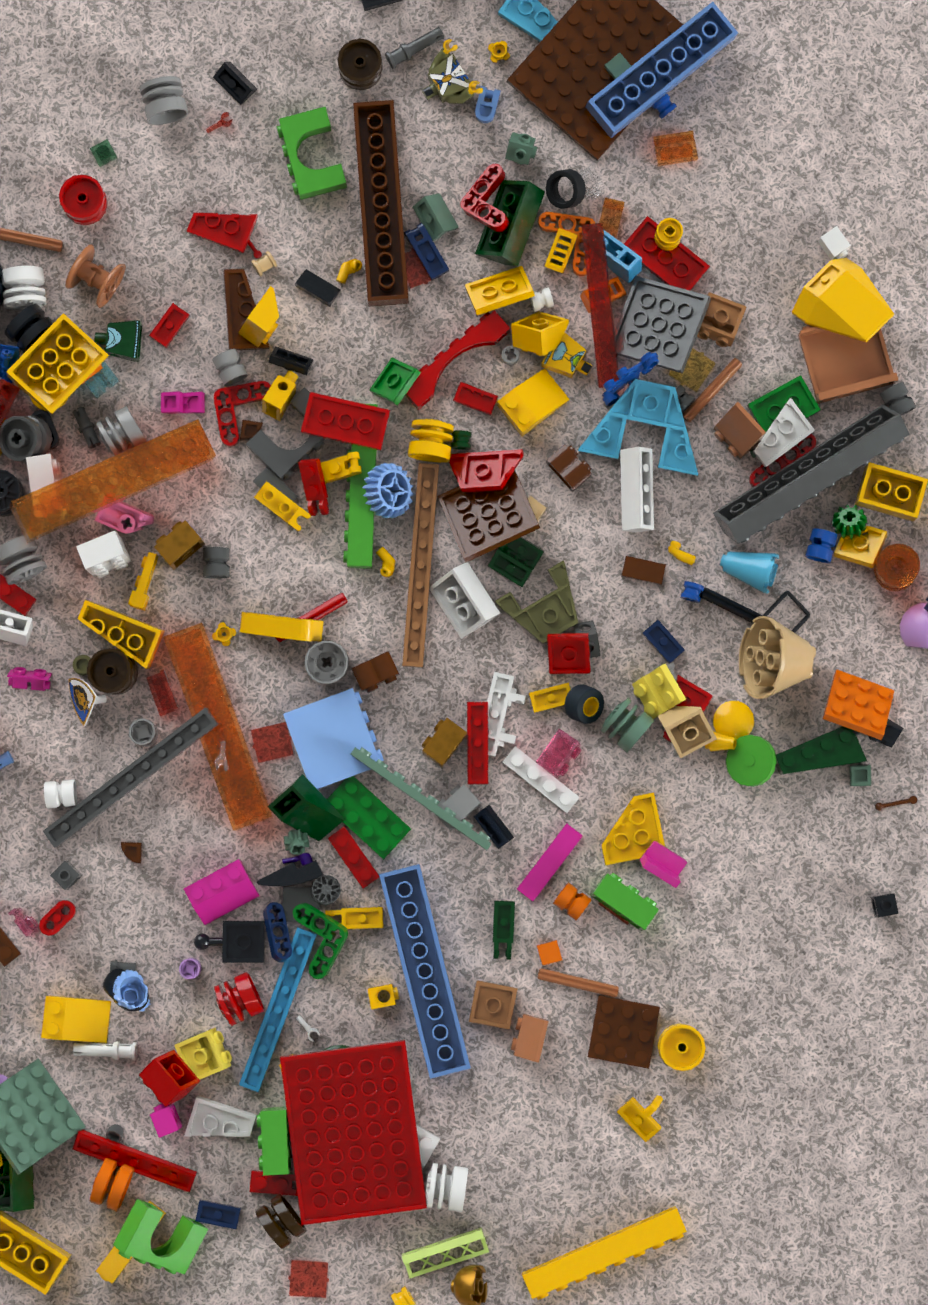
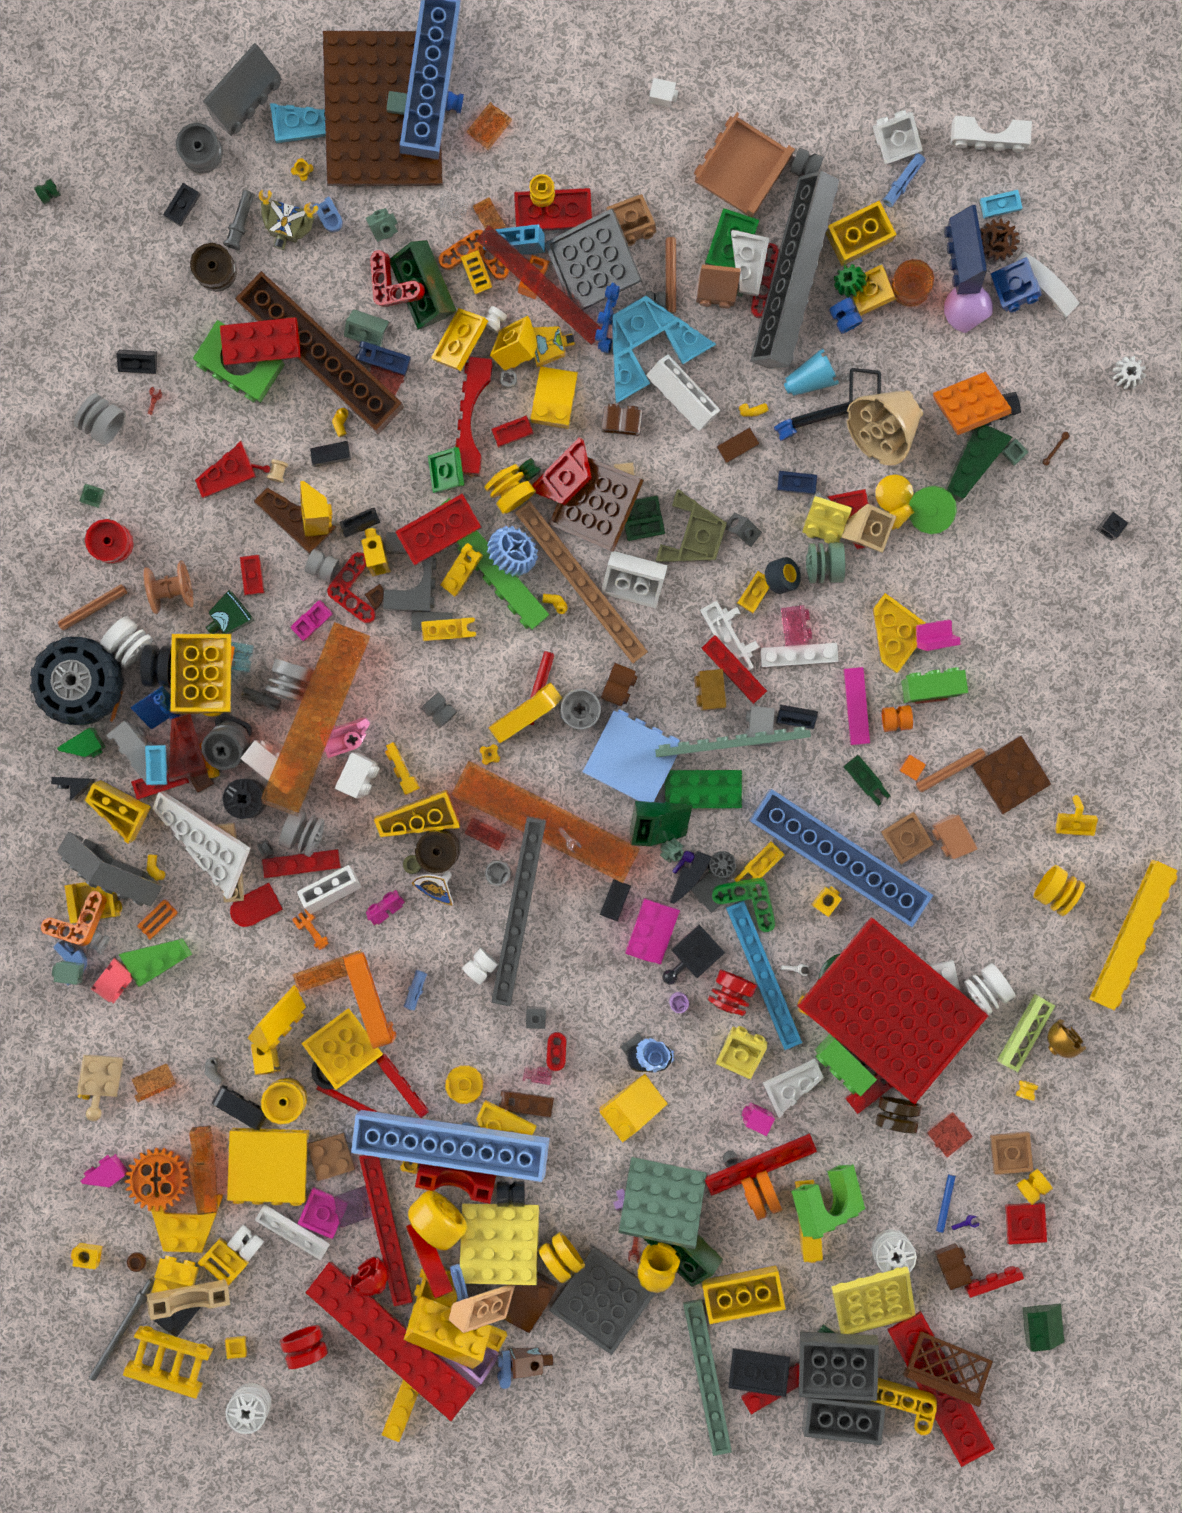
camera: 40 degrees left, 5 degrees up
(113, 1050) = (679, 1103): white pin -> none
(132, 851) = (565, 959): reddish brown tile -> none
(169, 1078) = (734, 1089): red brick -> none
(179, 544) = (402, 721): pearl gold brick -> none
(215, 840) = (615, 900): none -> black plate
(218, 1214) = (850, 1148): dark blue plate -> none
(272, 742) = (591, 798): clear red piece -> none
(274, 941) = (730, 927): dark blue beam -> none
(314, 486) = (457, 594): red hinge -> none
(342, 152) = (260, 341): none -> red plate
(353, 857) = (720, 825): red plate -> none
(569, 653) = (740, 550): red plate -> none
(575, 1159) = (1060, 891): none -> yellow wheel
(578, 188) = (430, 234): black tyre -> none
(670, 1040) = (1050, 753): yellow wheel -> none
(695, 371) = (648, 271): clear yellow piece -> none
(843, 301) = (707, 128): yellow wedge -> none

